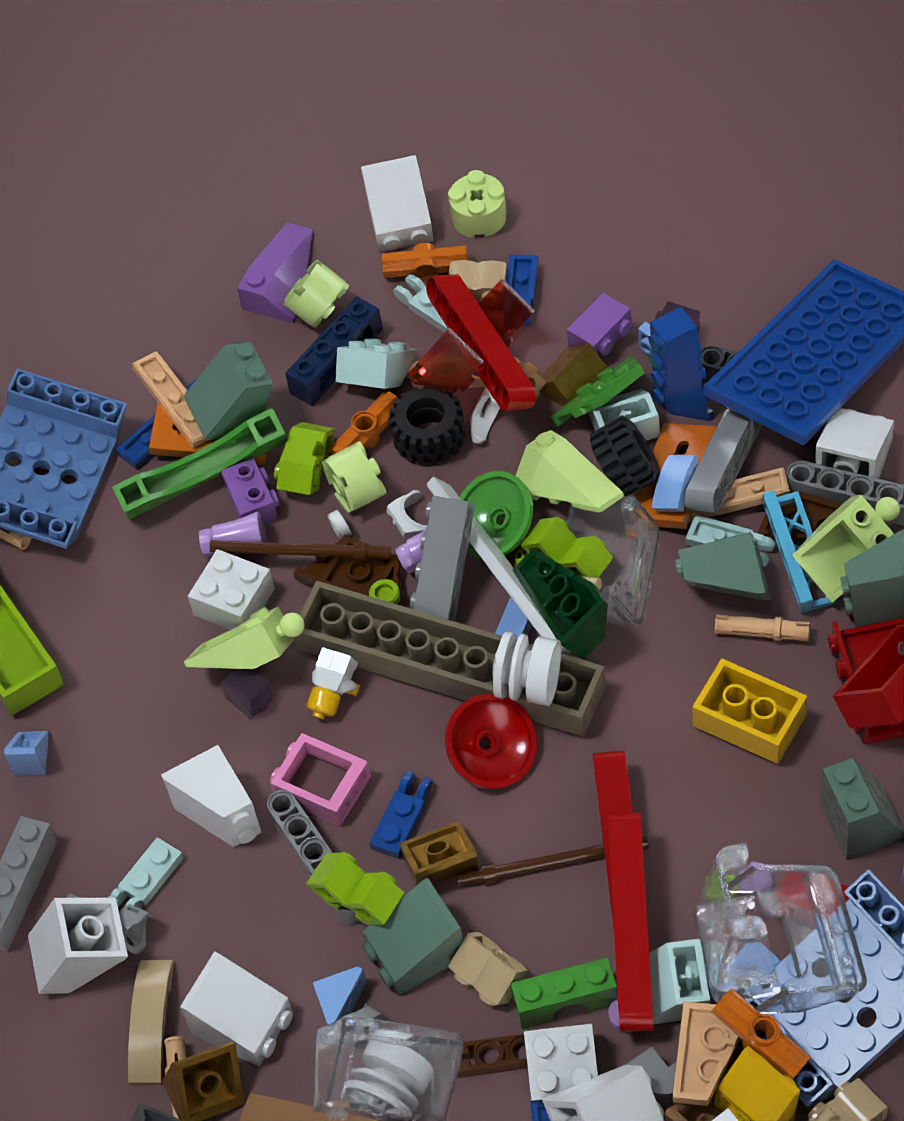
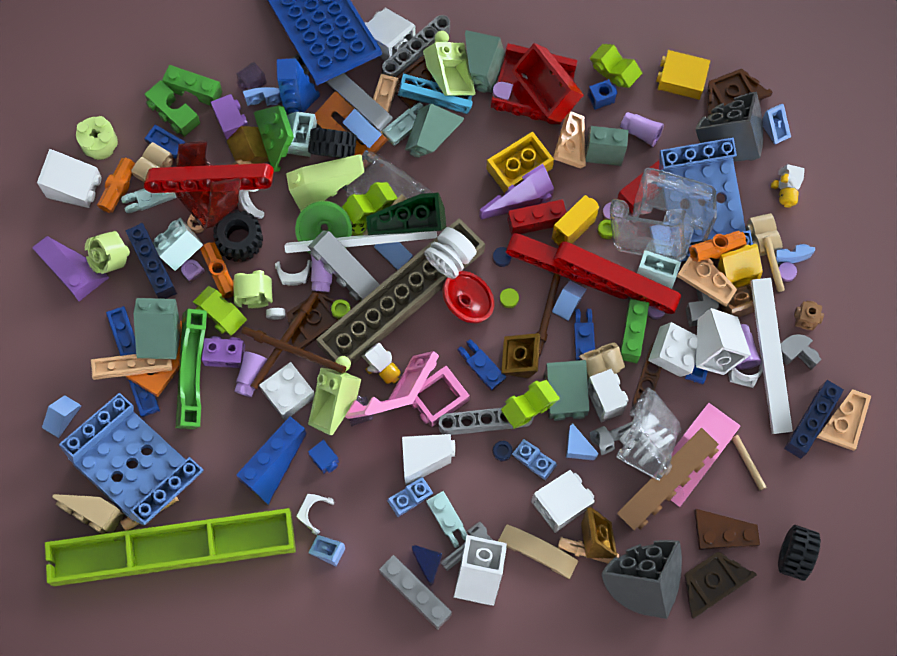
camera: 75 degrees left, 15 degrees up
(63, 878) = (428, 562): none -> clear blue slope
(65, 695) = (303, 512): none -> white helmet
(75, 365) = (60, 415): none -> light blue slope
(124, 623) = (272, 460): none -> blue wedge
(154, 817) = (410, 497): none -> light blue slope
(158, 681) = (324, 457): none -> blue brick
(235, 680) = (405, 390): none -> bright pink windscreen
(282, 904) = (502, 451): none -> dark blue tile
(287, 520) = (260, 336): none -> reddish brown bar
(289, 952) = (534, 459): none -> light blue slope
(351, 402) = (191, 269): none -> lavender tile
(432, 992) = (607, 395): none -> white brick
(528, 803) = (509, 298): none -> lime tile
(529, 928) = (583, 334): none -> blue hinge
(571, 883) = (568, 300): none -> light blue slope
(577, 244) = (182, 119): none -> bright green arch
(584, 762) = (500, 257): none -> dark blue tile
(621, 264) = (200, 86): none -> bright green arch
(677, 776) = (535, 217): none -> red brick
(692, 824) = (576, 221): none -> yellow brick
(713, 742) = (531, 191): none -> medium lavender wedge
(759, 627) = (473, 129): light nougat pin -> none
(809, 759) = (571, 141): none -> light nougat wing
(860, 635) = (502, 90): none -> lavender tile

